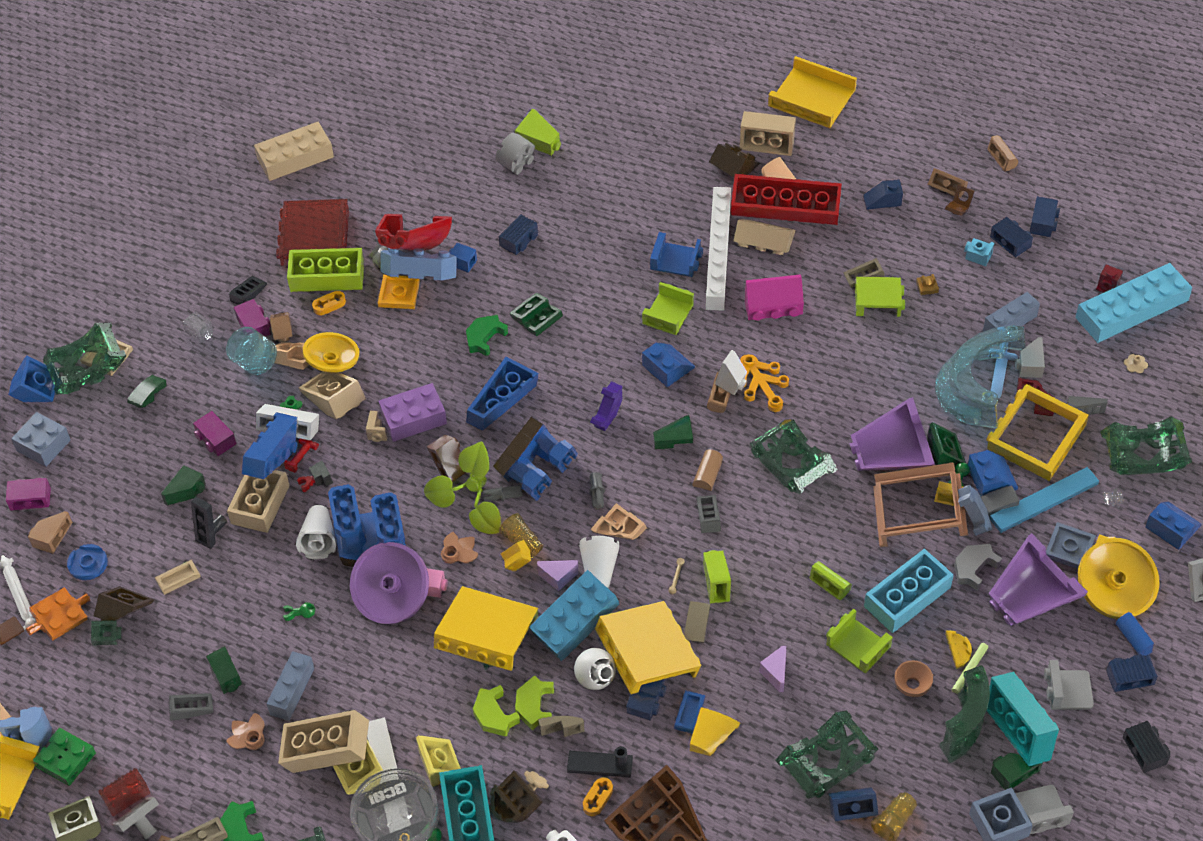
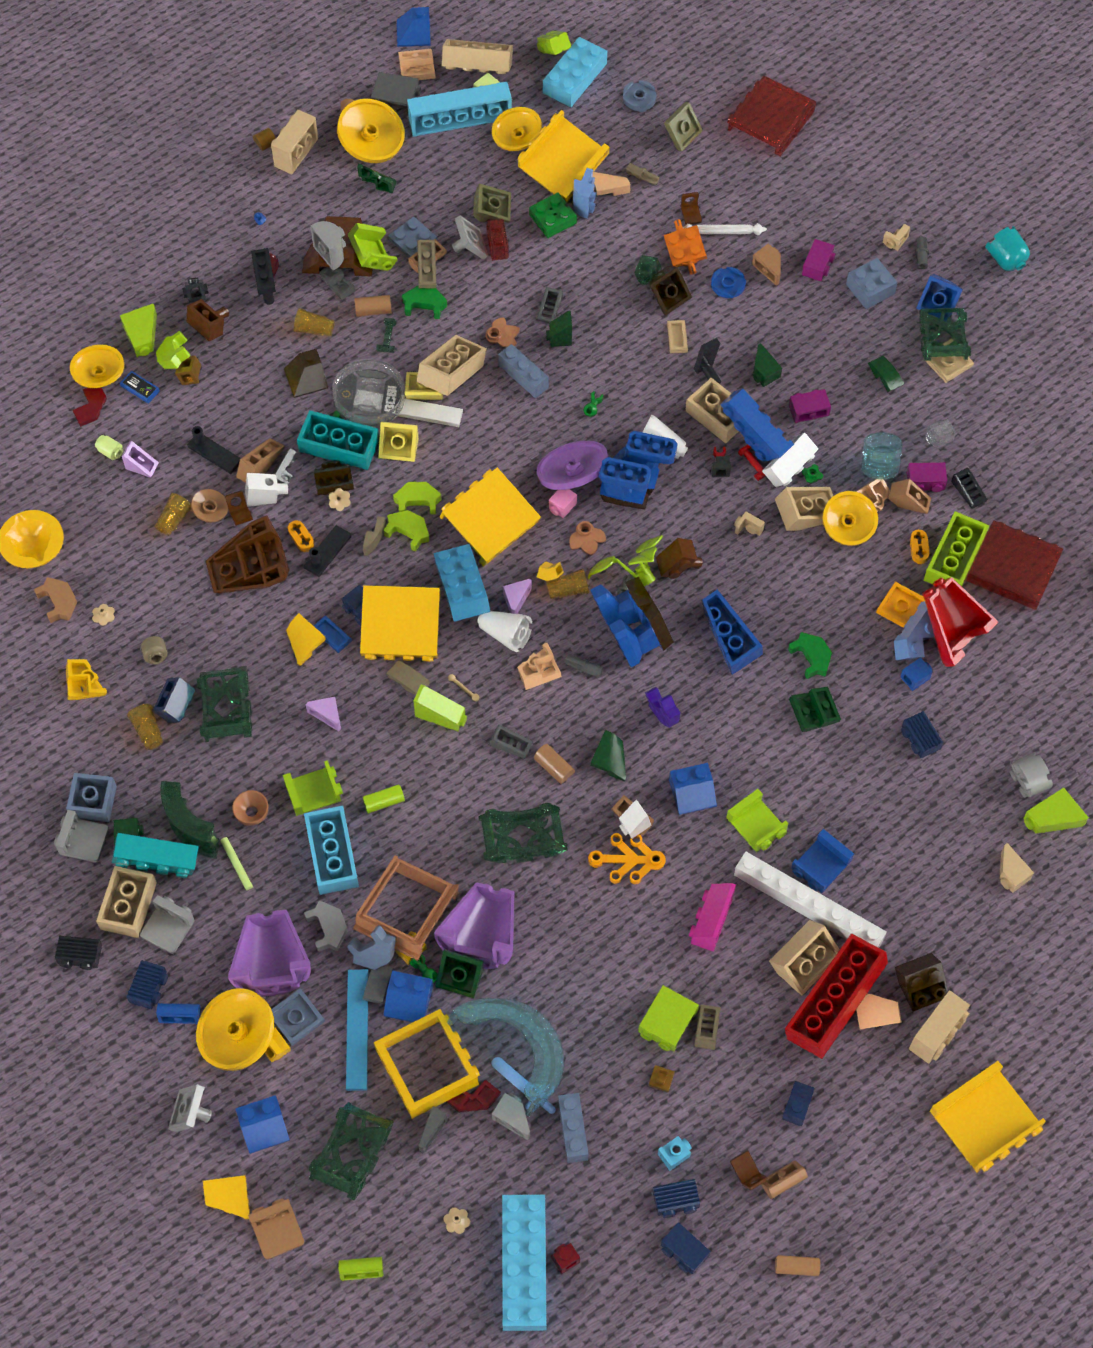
camera: 115 degrees right, 10 degrees up
(412, 412) = (749, 558): medium lavender brick -> none
(595, 669) = (404, 573): white brick -> none
(603, 141) = (1013, 869): none -> tan slope
(959, 647) = (260, 867): yellow tile -> none
(1081, 727) = (126, 902): none -> tan brick
(1113, 498) = (317, 1089): clear plate -> none

